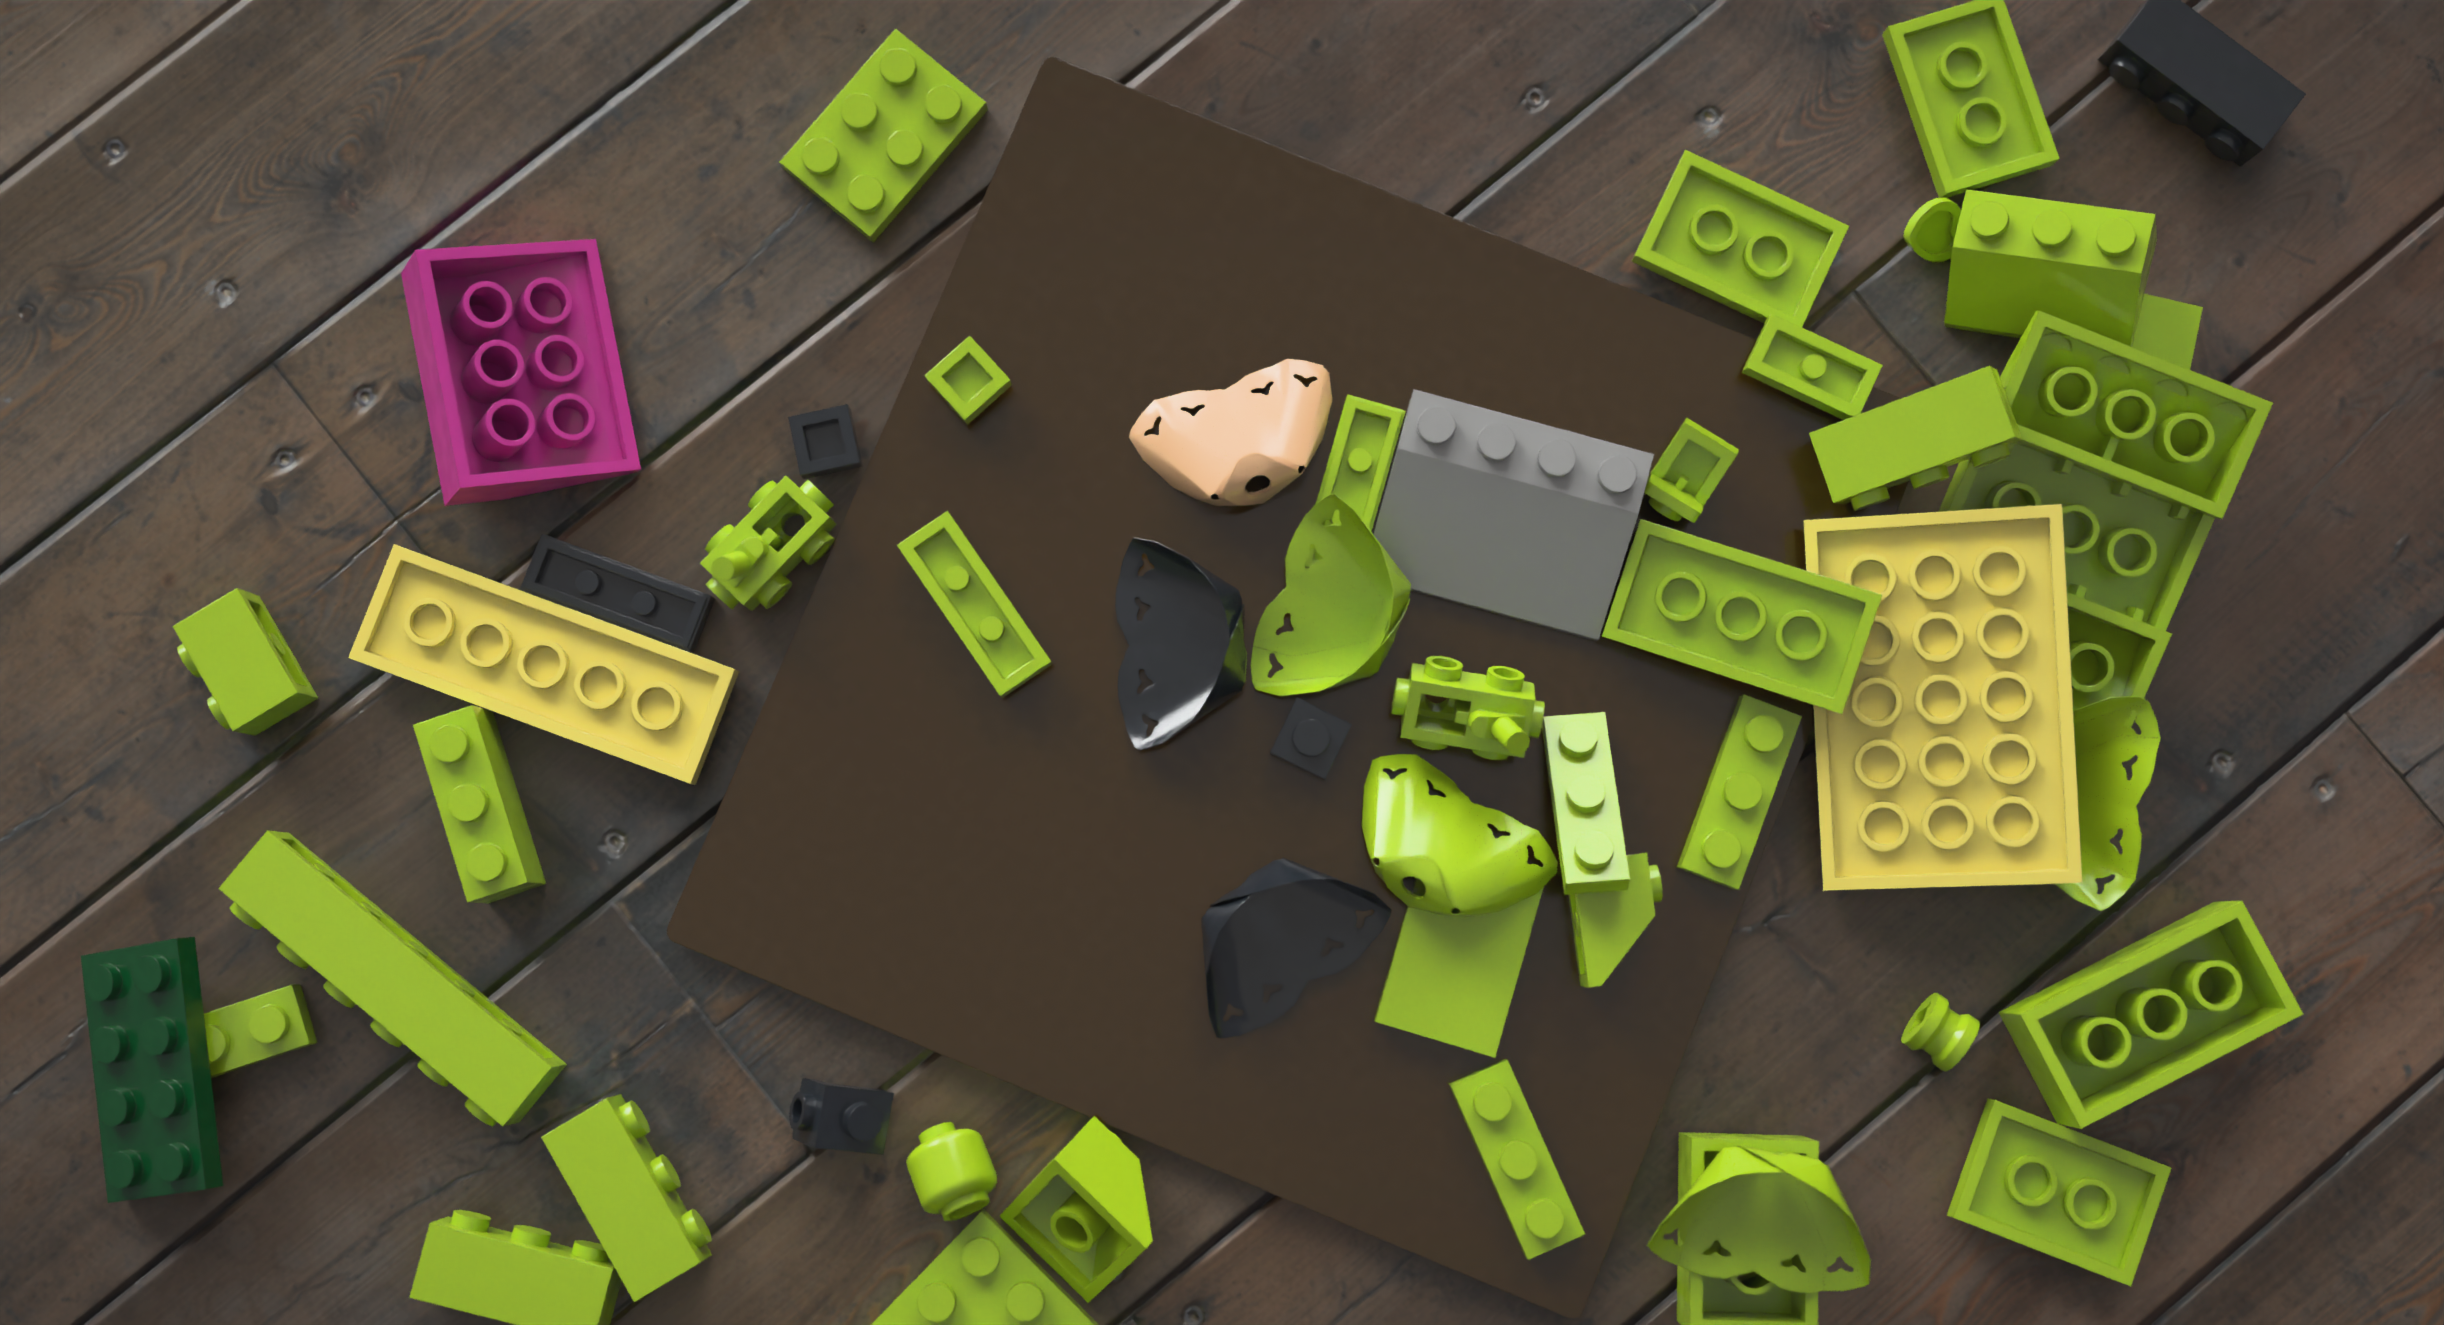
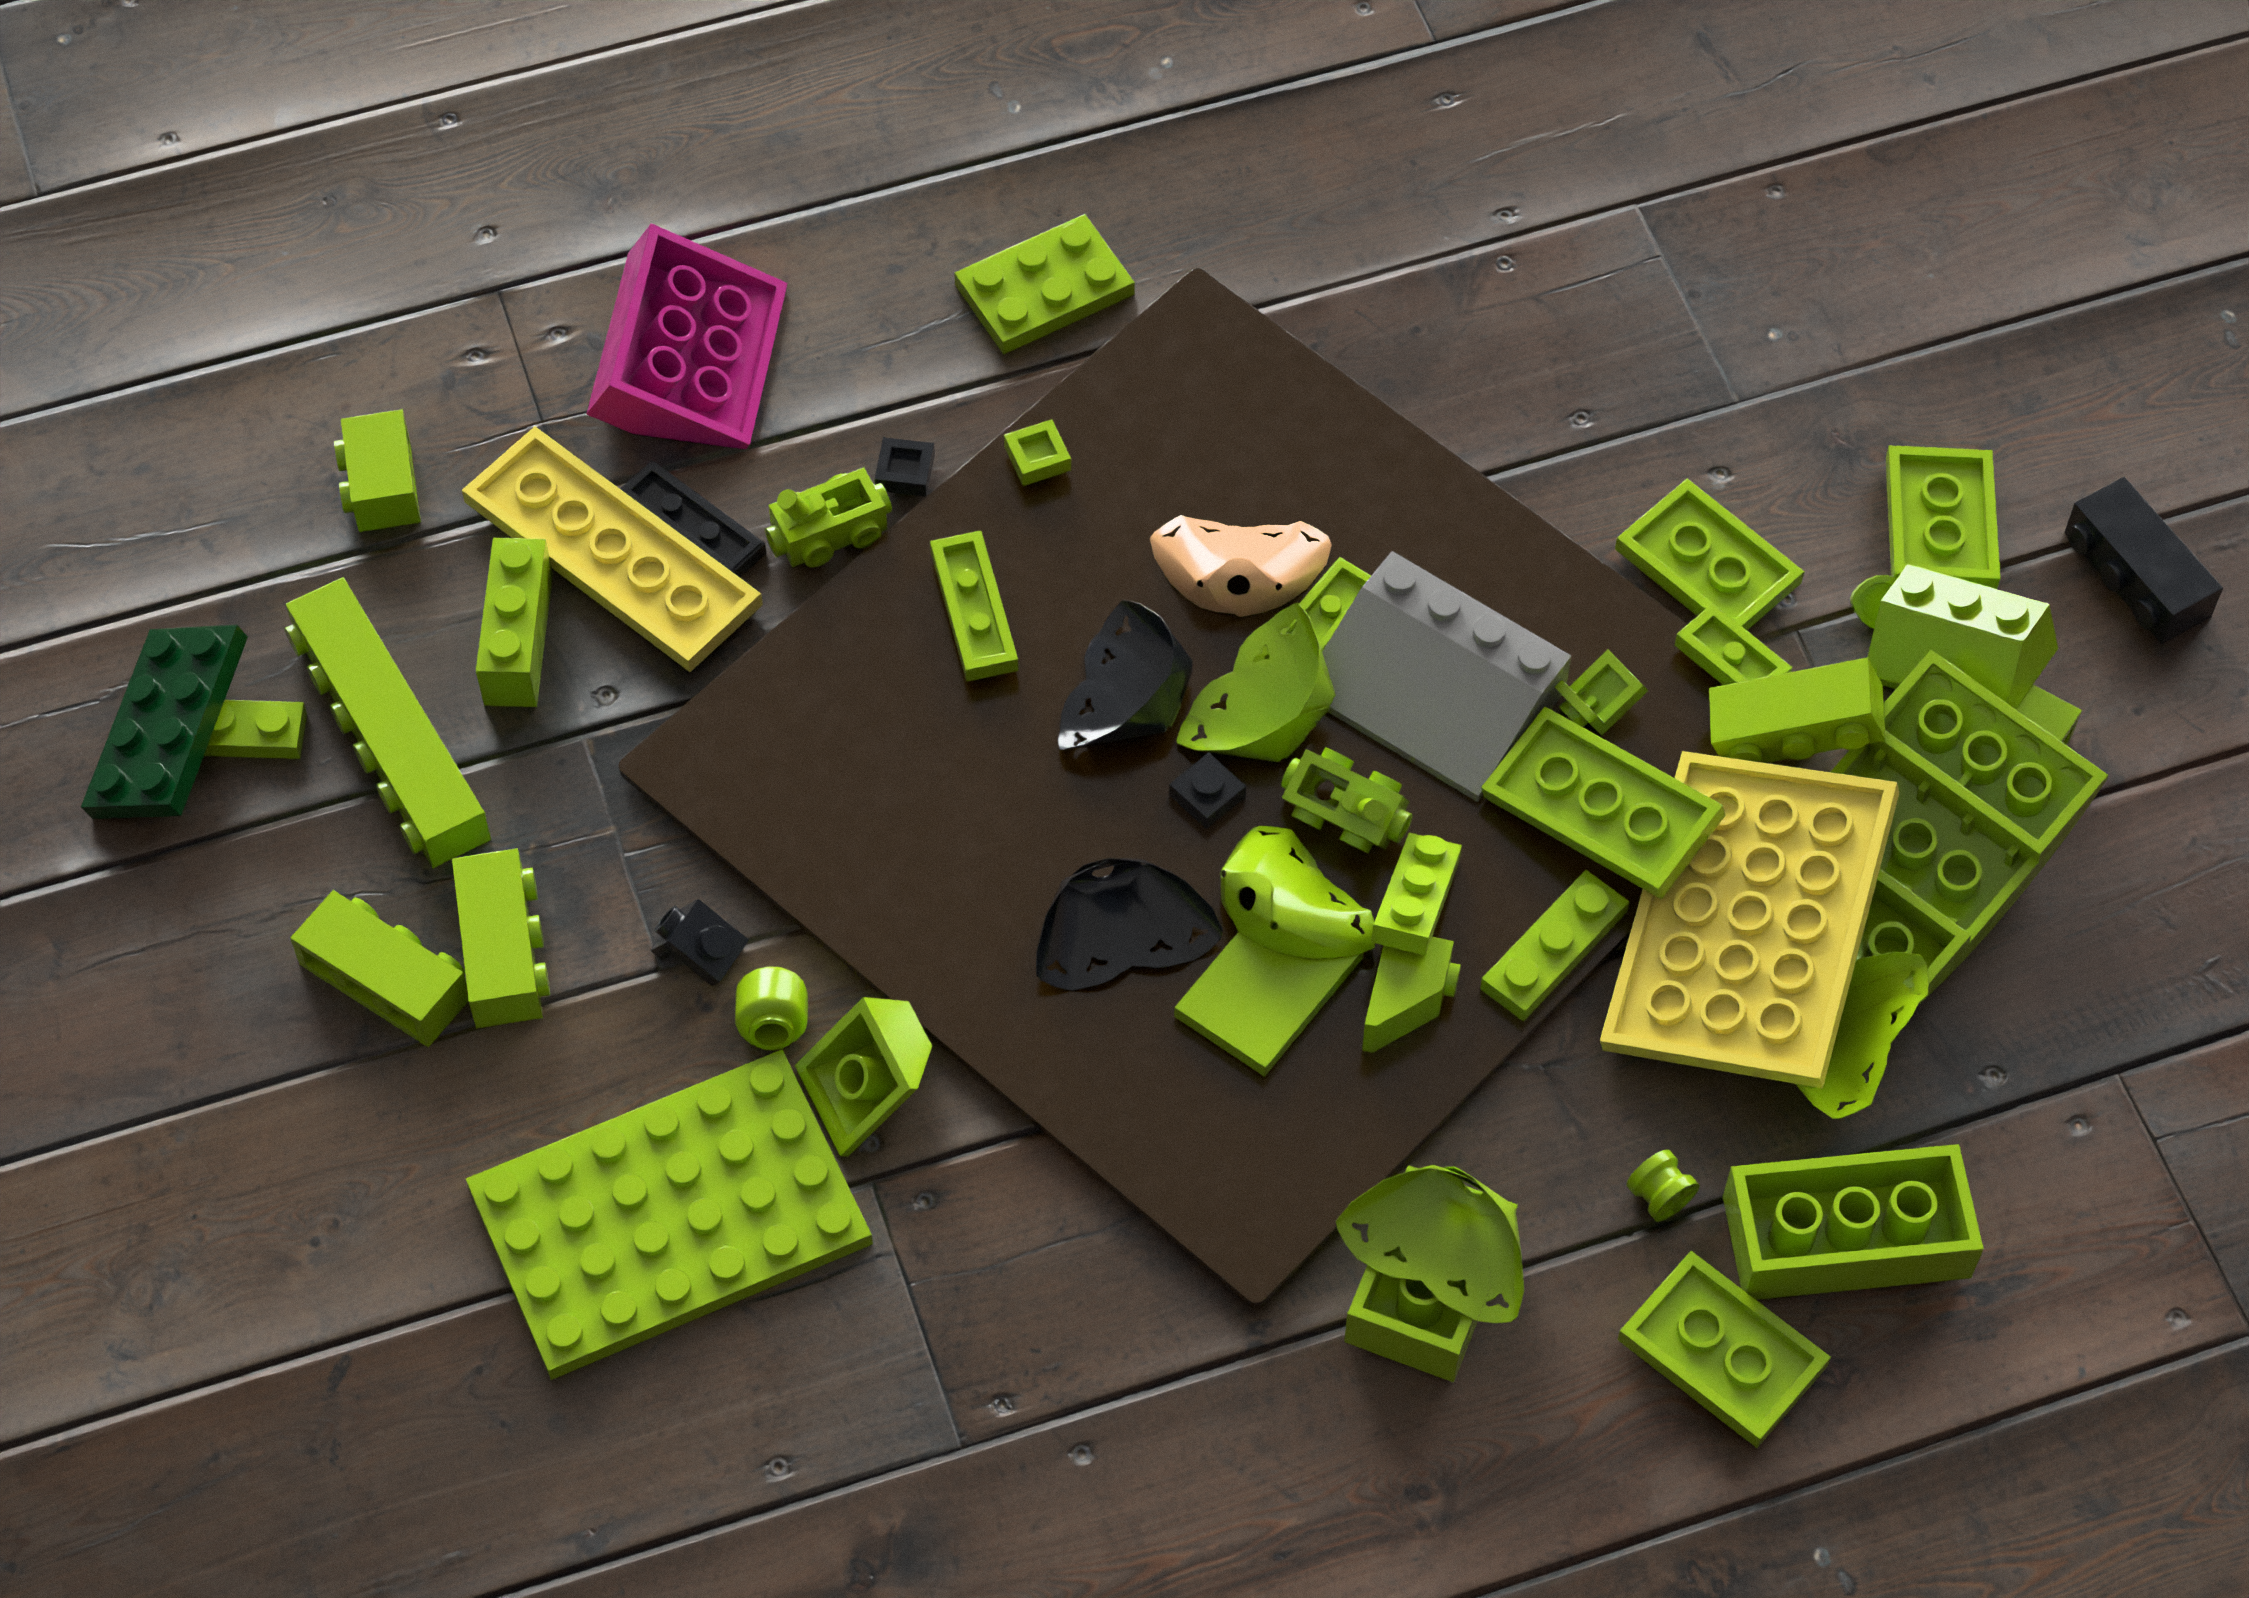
camera: 20 degrees right, 25 degrees down
(1516, 1159) = (1253, 1156): lime plate -> none

